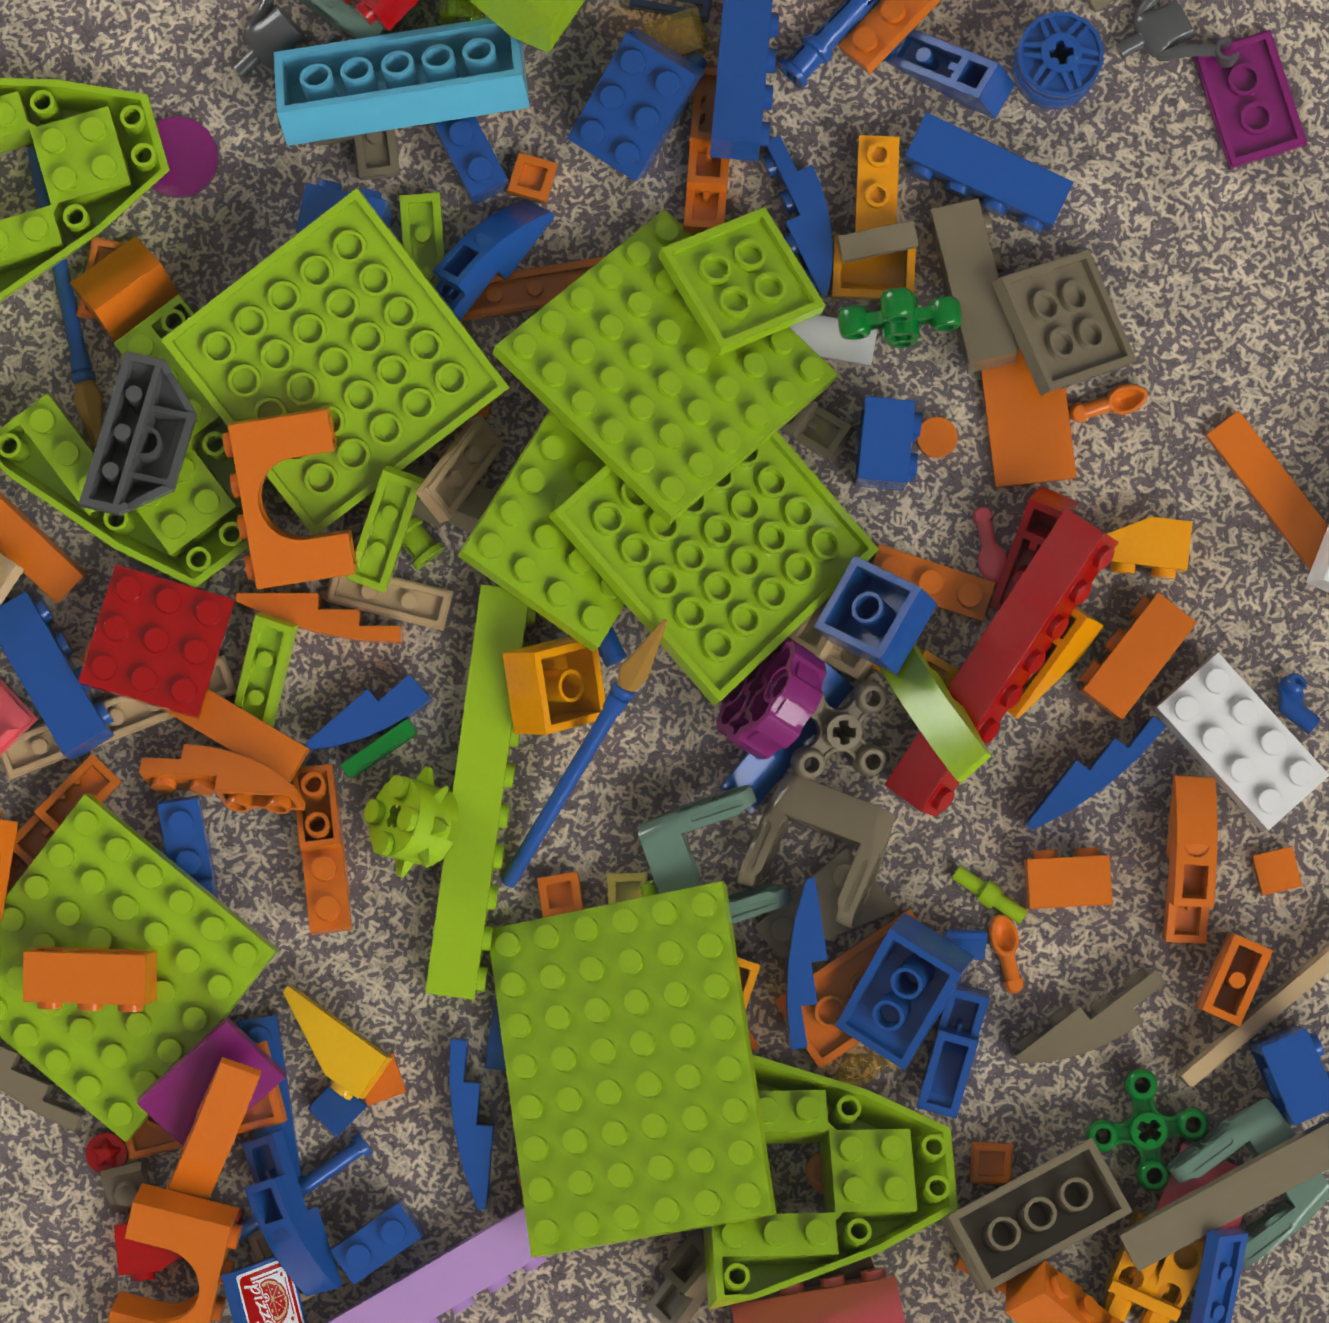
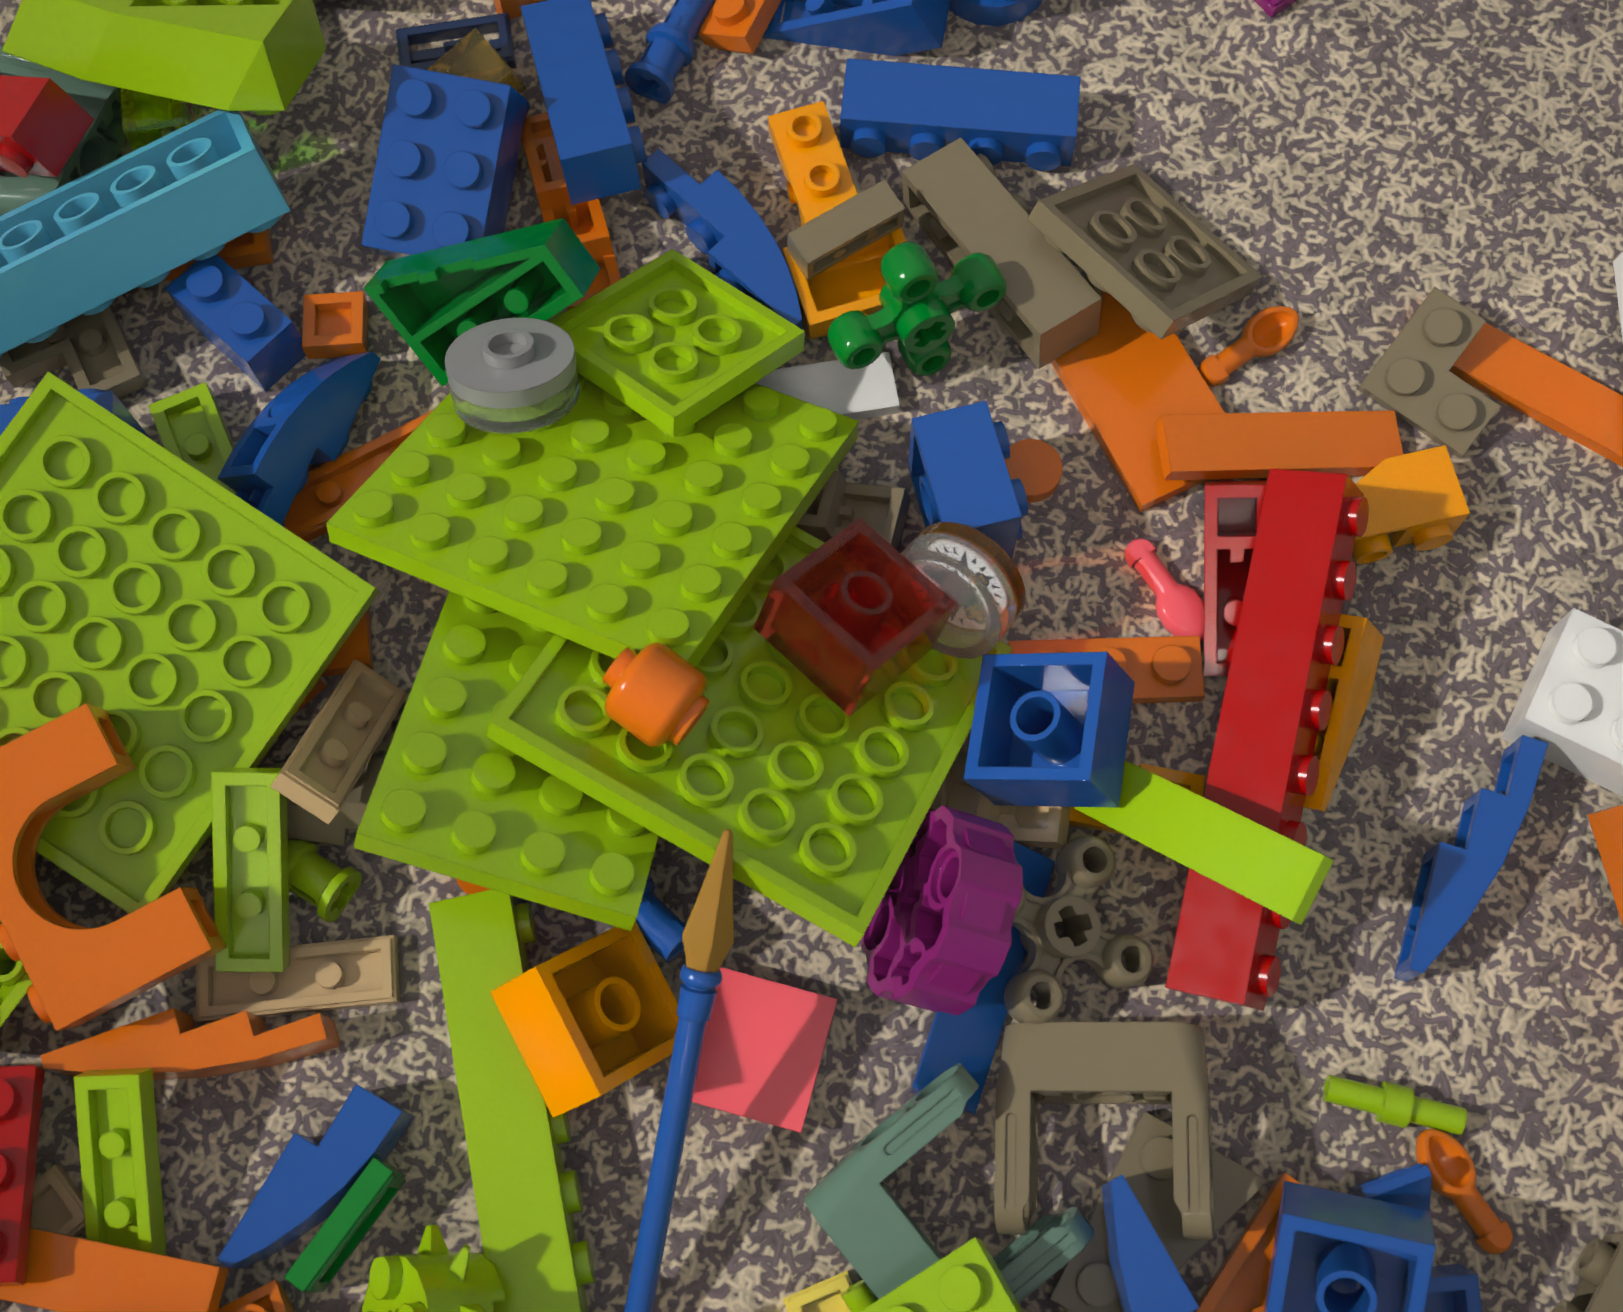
camera: 20 degrees left, 15 degrees down
(633, 207) = (482, 280): none -> green wedge
(634, 279) = (512, 375): none -> light grey piece
(645, 736) = (763, 1050): none -> coral piece
(651, 527) = (655, 694): none -> orange head
(785, 509) = (853, 615): none -> clear red brick
(852, 511) = (977, 578): none -> clear piece
(1068, 880) = (1507, 1036): orange brick -> none
(1095, 479) = (1251, 443): none -> orange tile
(1136, 655) = (1450, 664): orange brick -> none
(1201, 468) = (1417, 379): none -> dark tan plate

